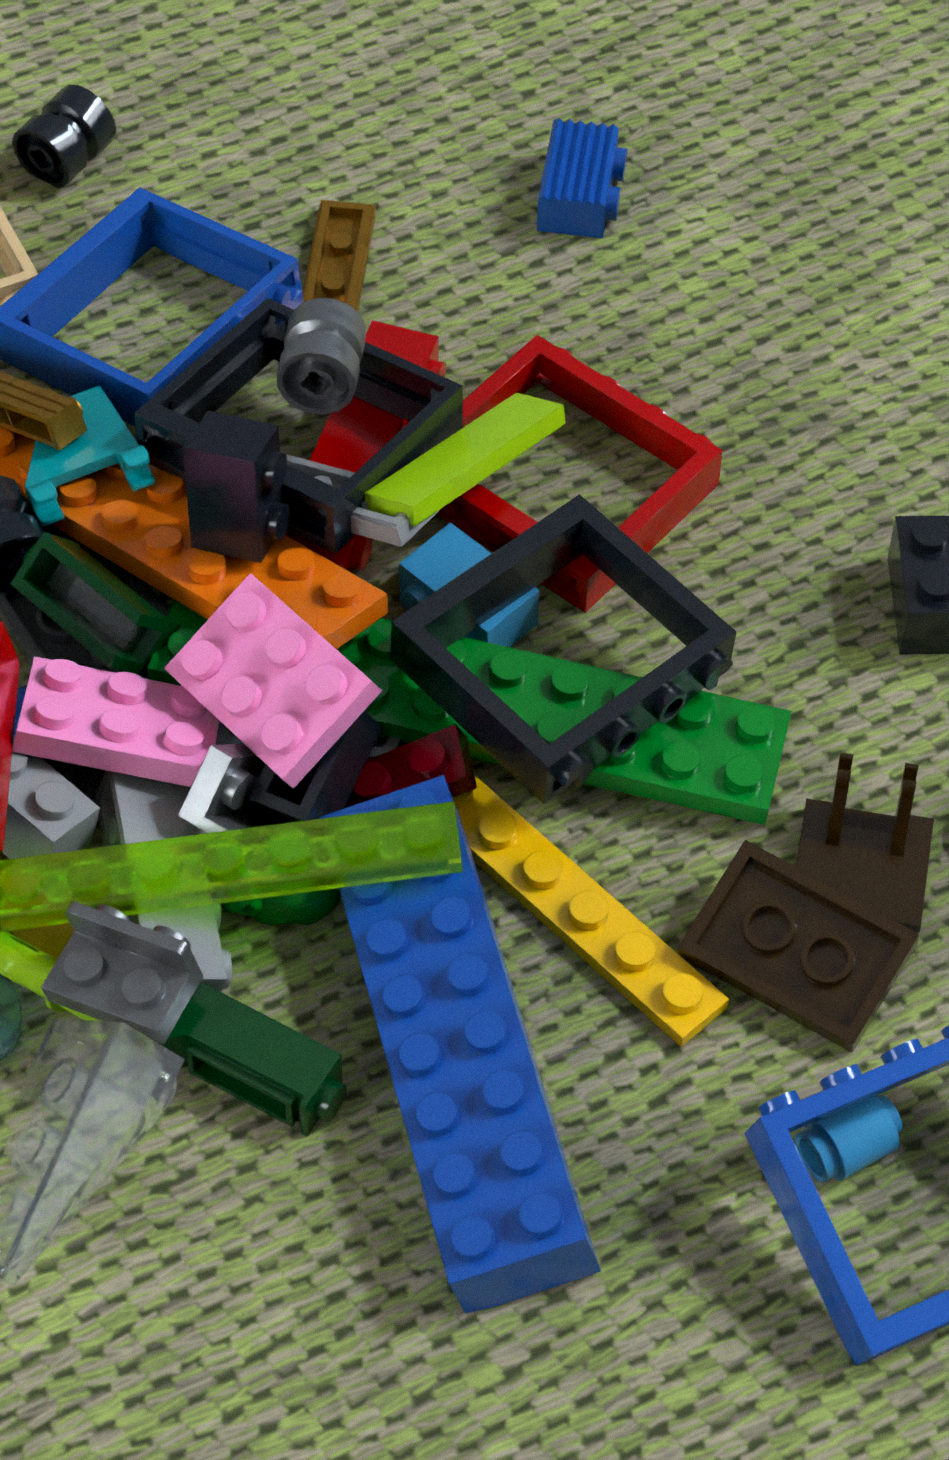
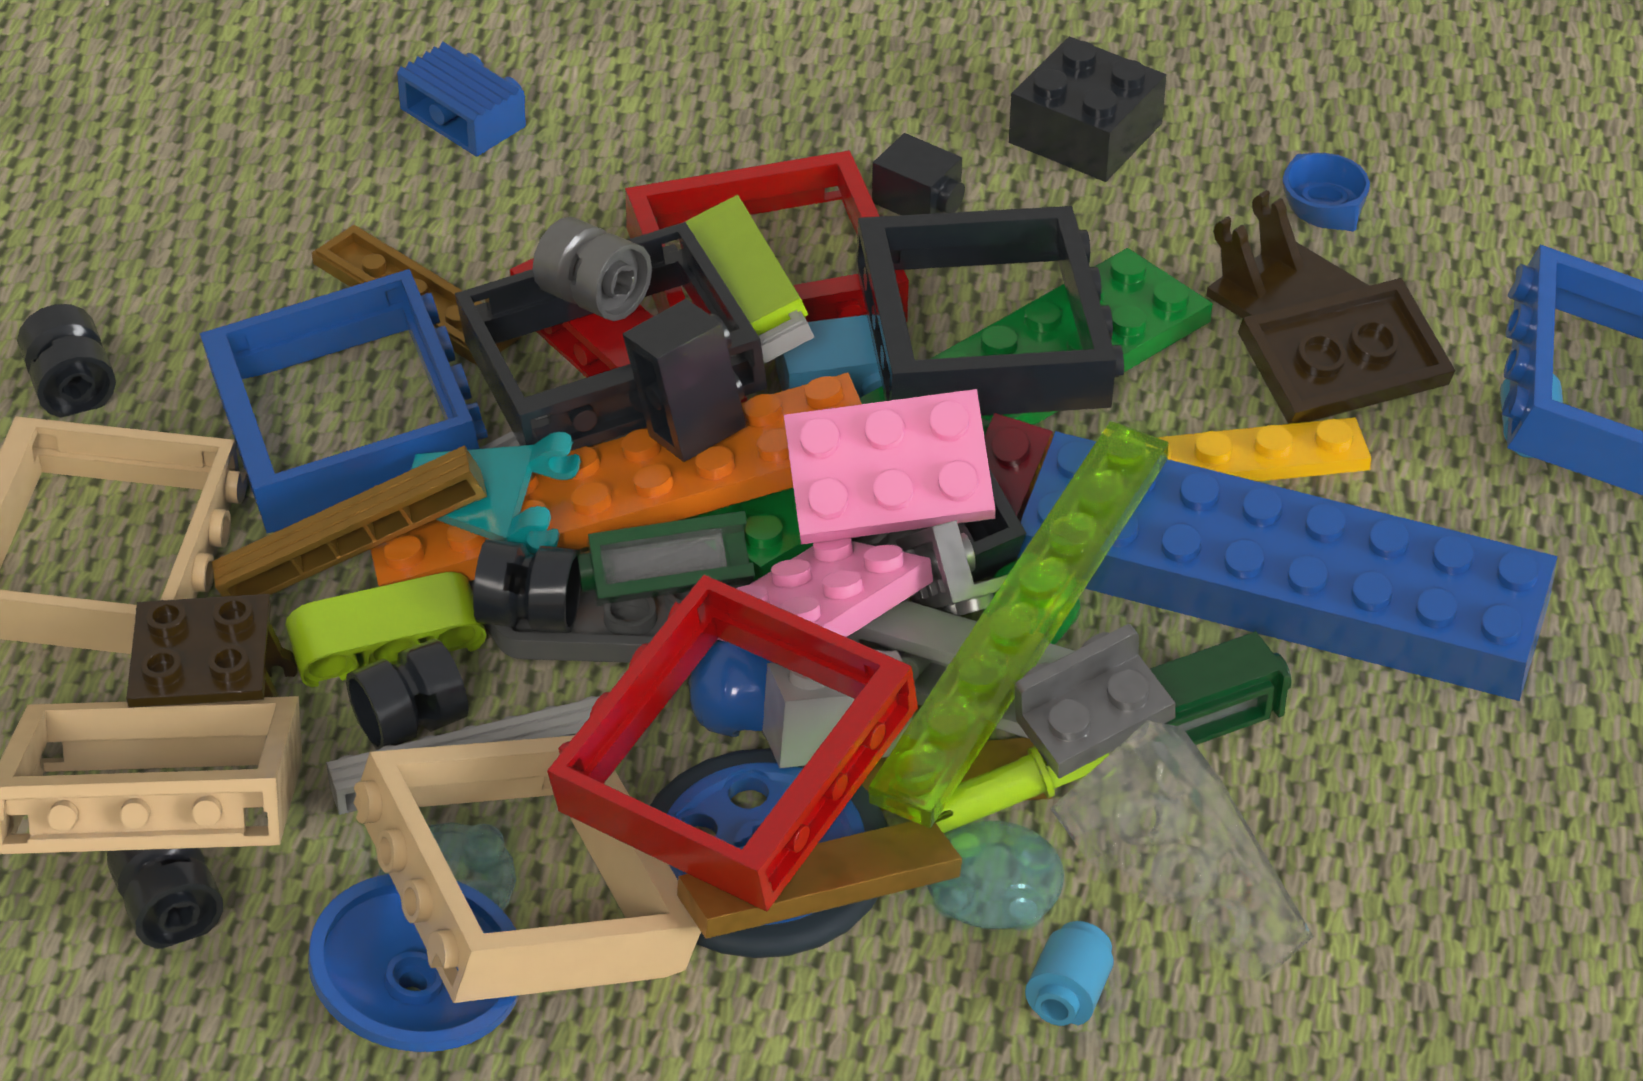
camera: 55 degrees left, 10 degrees down
(751, 519) = (917, 178): none -> black brick

